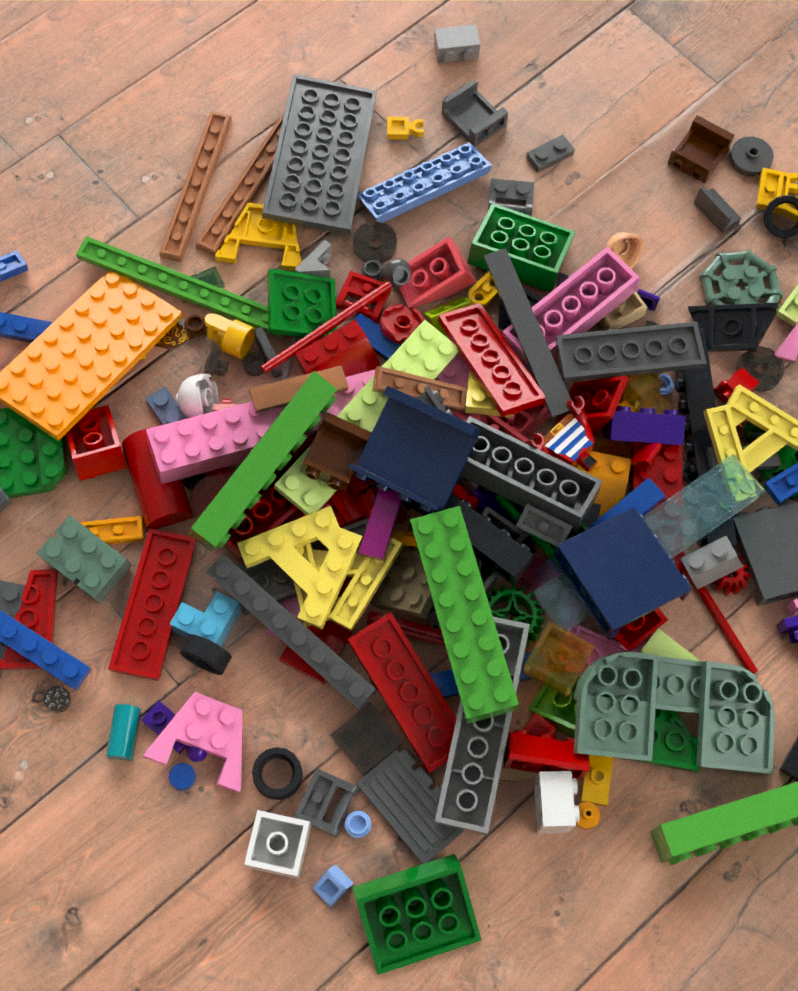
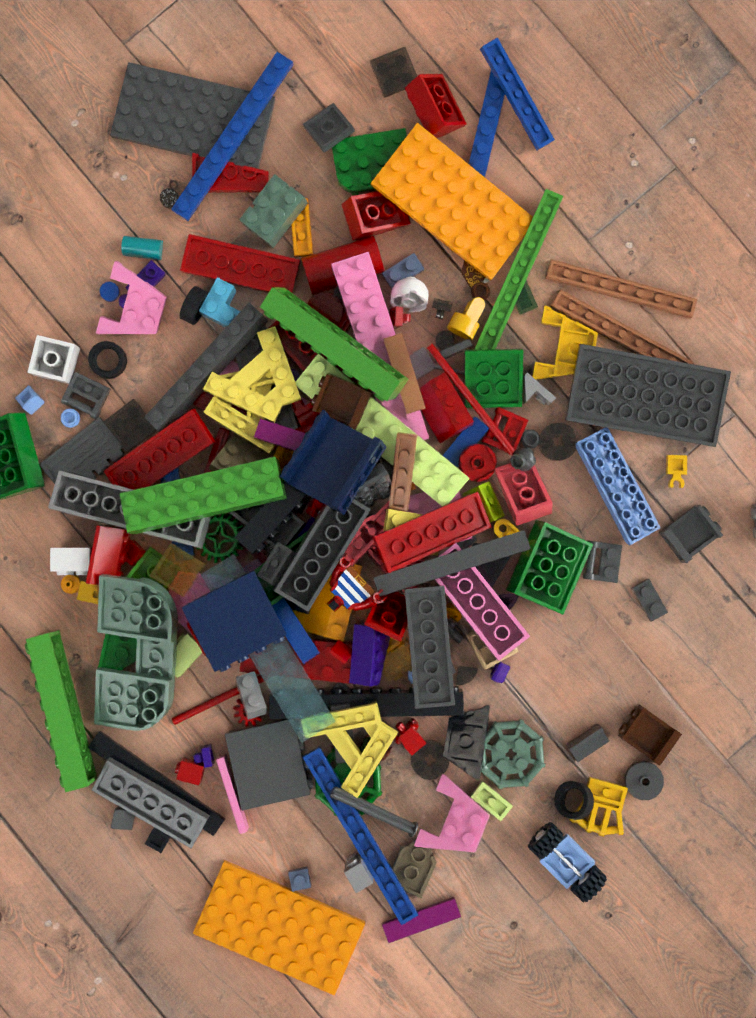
camera: 95 degrees right, 20 degrees up
(626, 247) = (543, 654): light nougat helmet -> none

